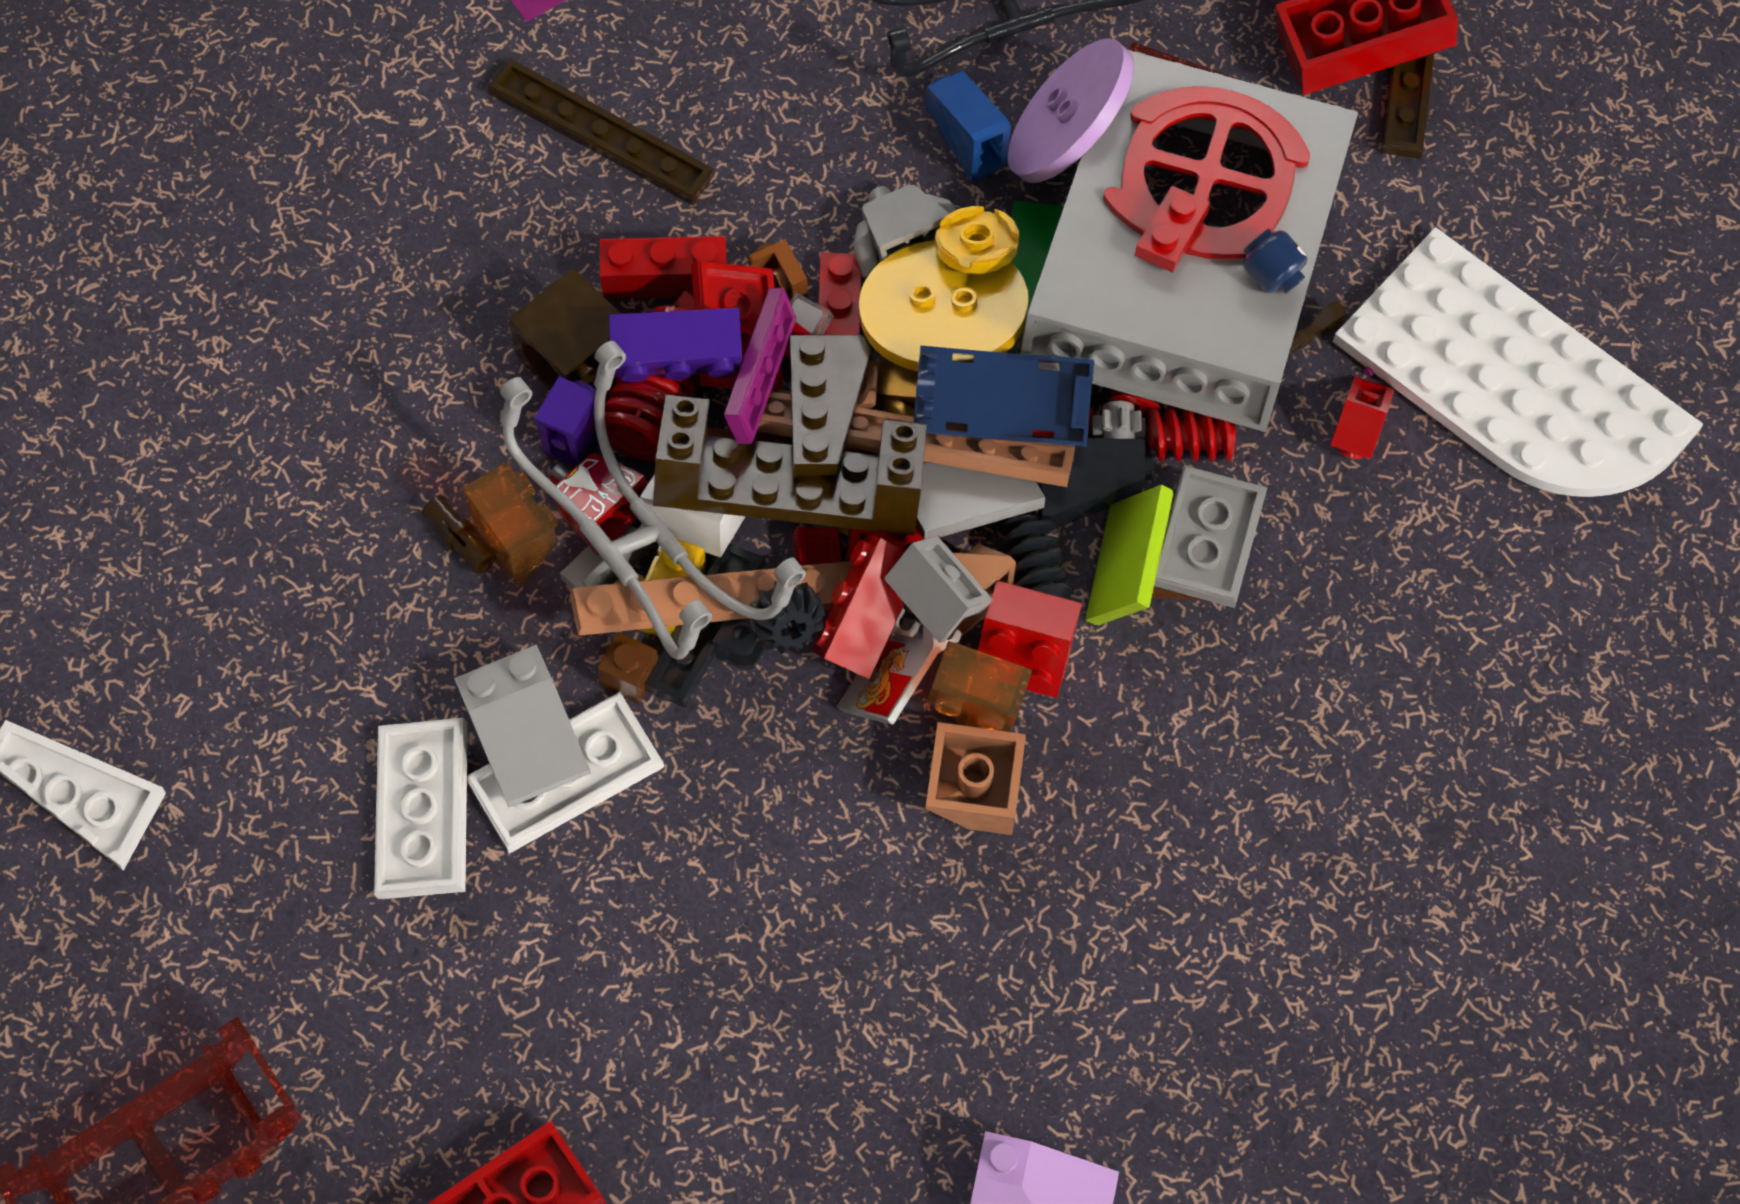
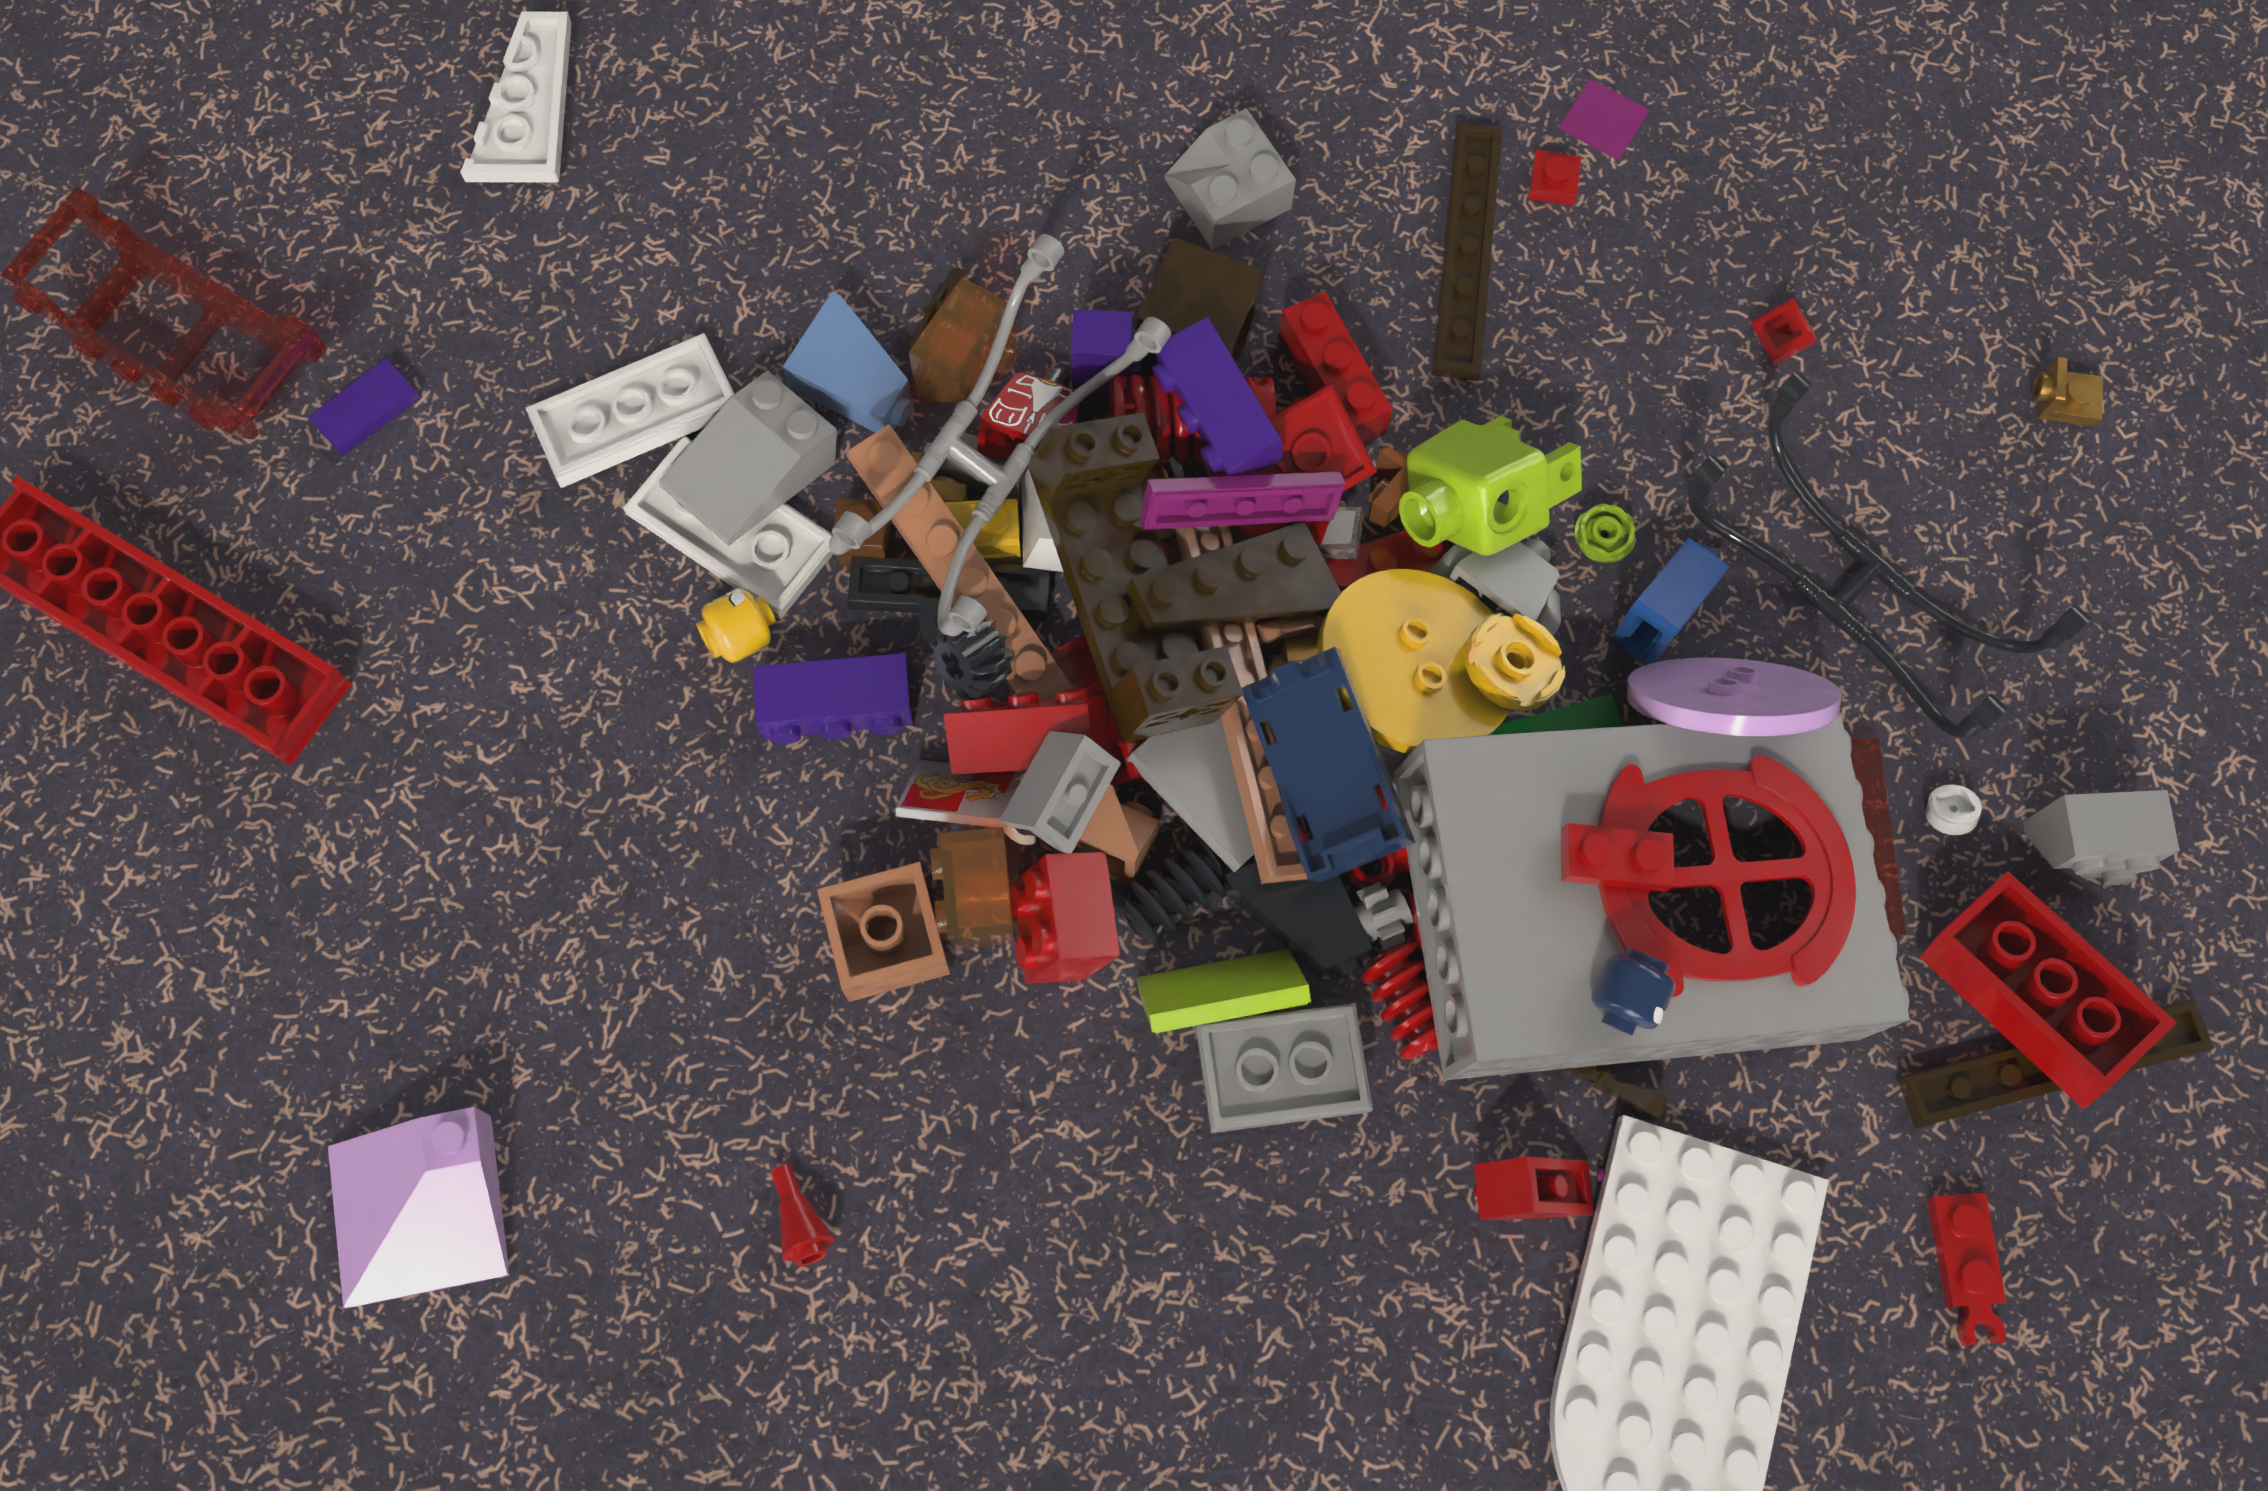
camera: 65 degrees right, 5 degrees up
(302, 1030) = (364, 407): none -> dark purple tile
(454, 269) = (1231, 179): none -> light grey slope
(476, 621) = (848, 370): none -> medium blue slope
(571, 42) = (1554, 177): none -> red plate
(661, 795) = (736, 625): none -> yellow head
(759, 746) = (833, 697): none -> dark purple brick
(823, 200) = (1464, 472): none -> lime piece
(885, 133) = (1612, 521): none -> lime plate
(1176, 934) = (802, 1230): none -> red cone
(1207, 21) = (1953, 809): none -> white tile
(1527, 170) = (1968, 1262): none -> red plate

